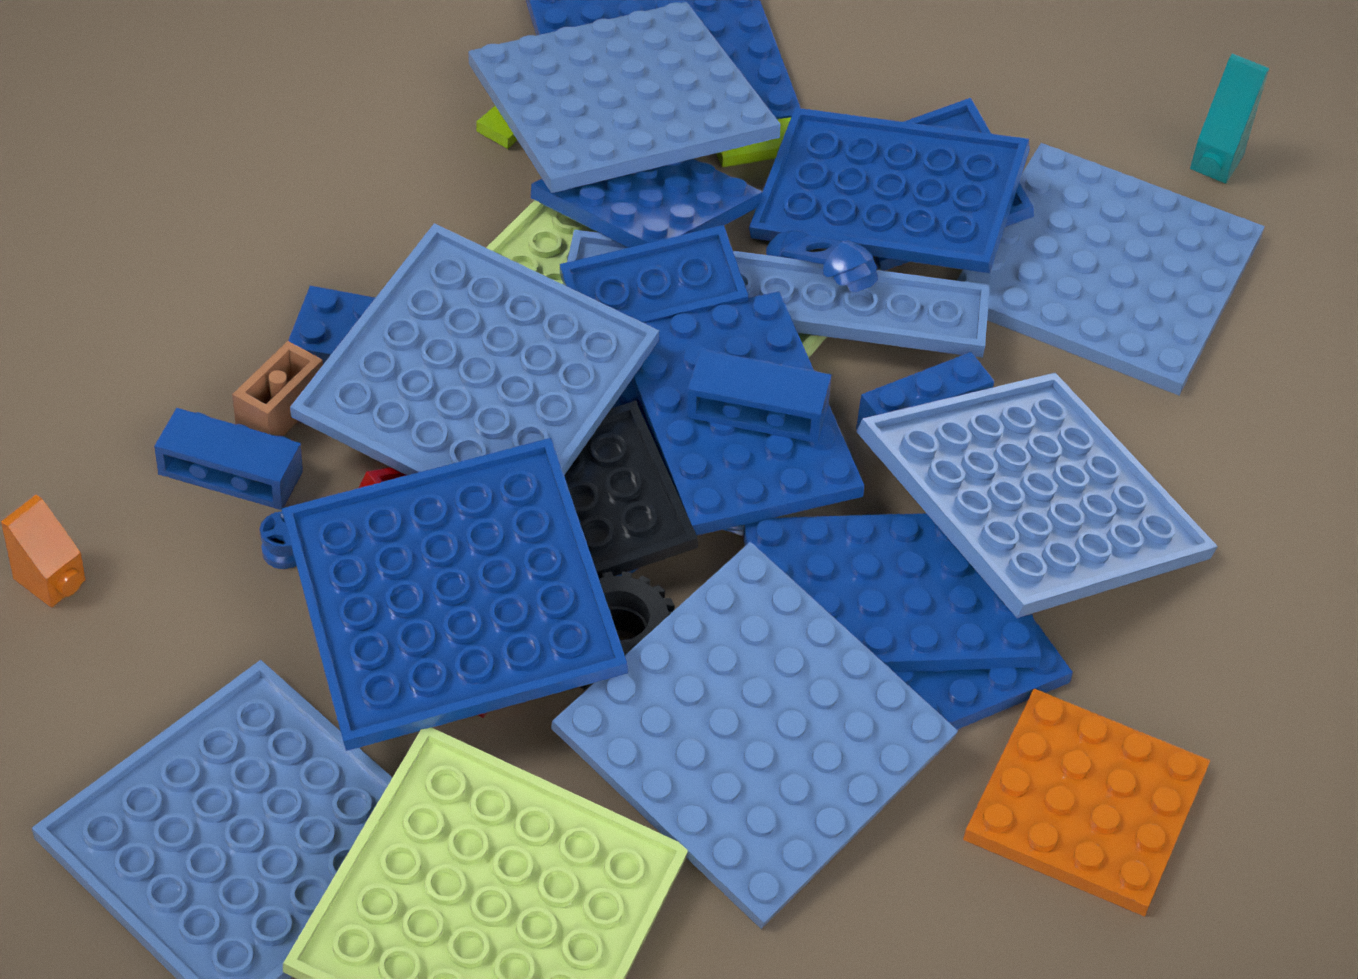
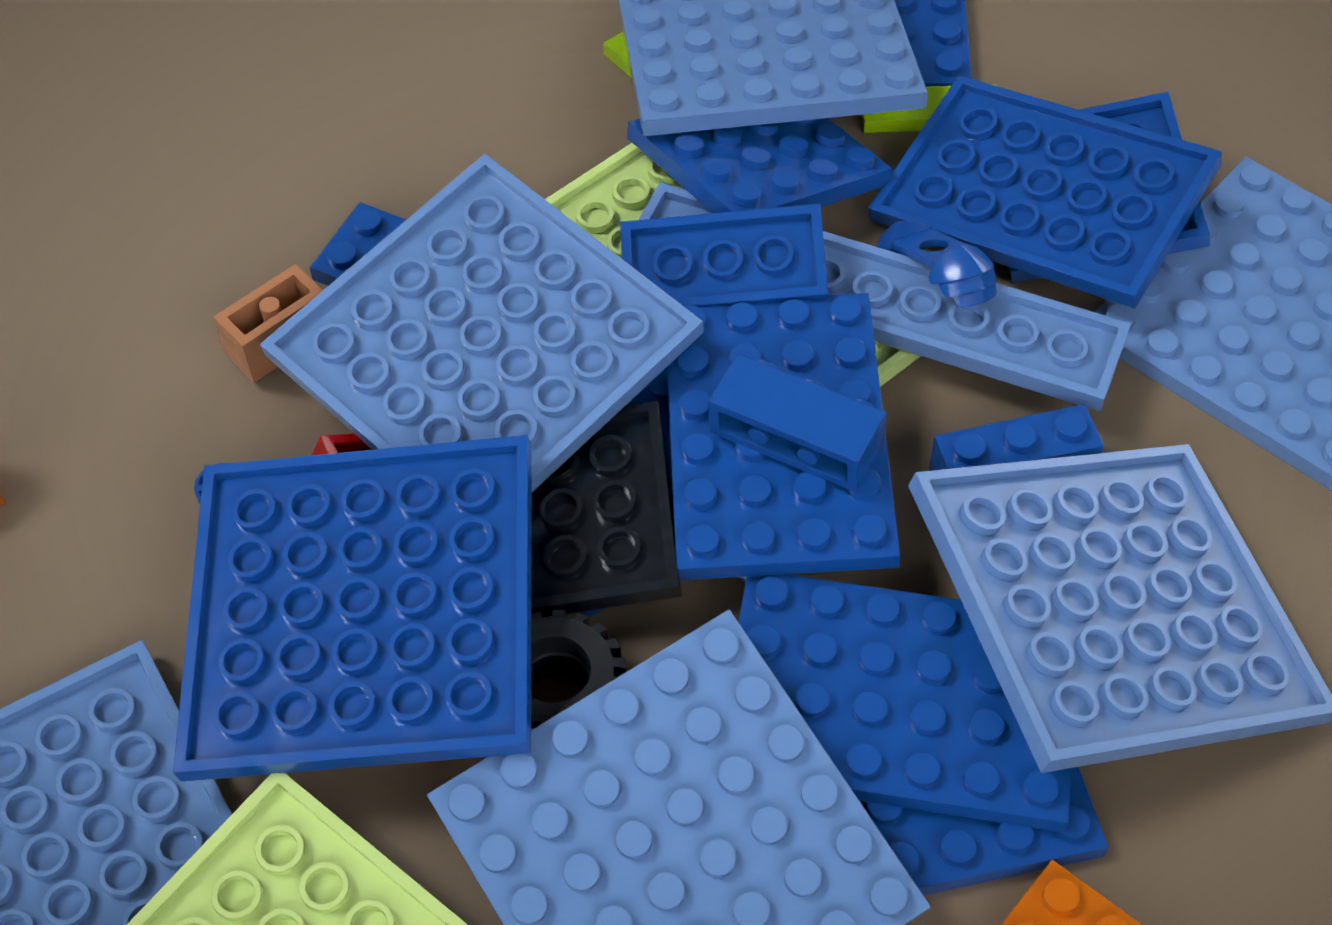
camera: 20 degrees right, 5 degrees up
(229, 458) = (200, 388): blue brick -> none

